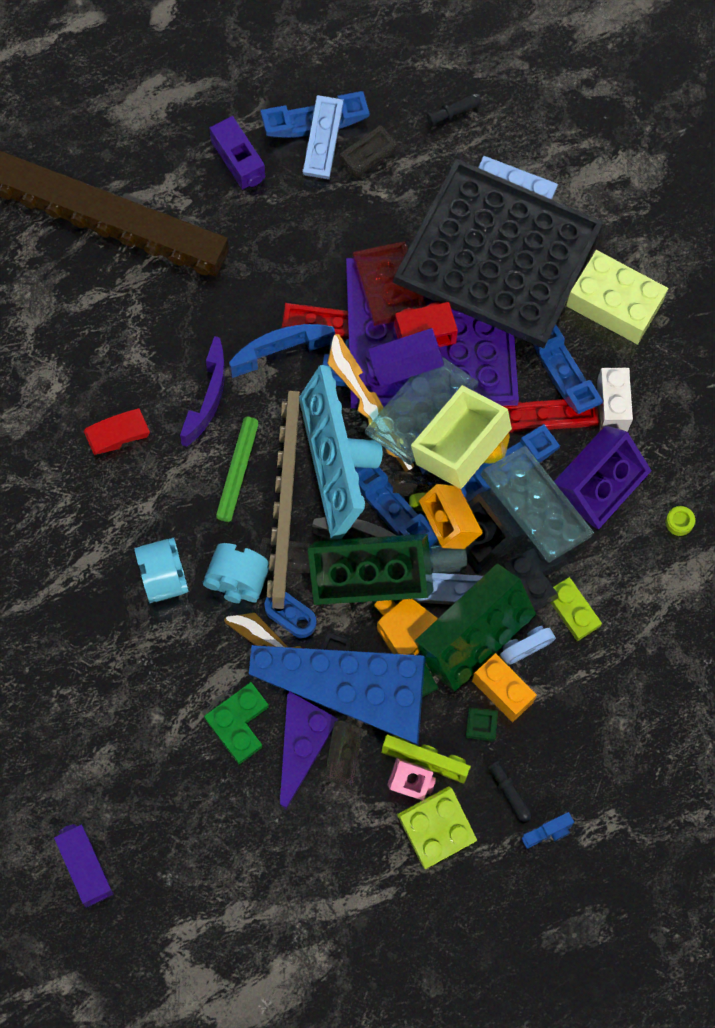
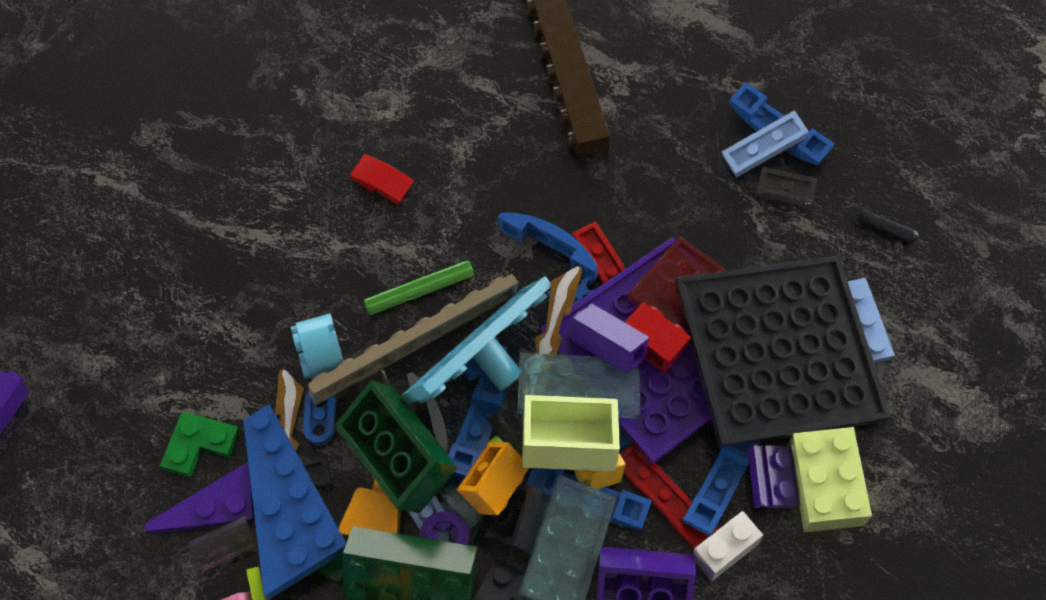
camera: 60 degrees right, 5 degrees down
(161, 570) = (279, 288): medium azure brick -> none
(197, 422) = (429, 229): dark purple slope -> none
(237, 153) = (695, 94): dark purple brick -> none
(451, 579) = (443, 522): none -> dark purple gear
(586, 331) = (773, 476): none -> dark purple plate

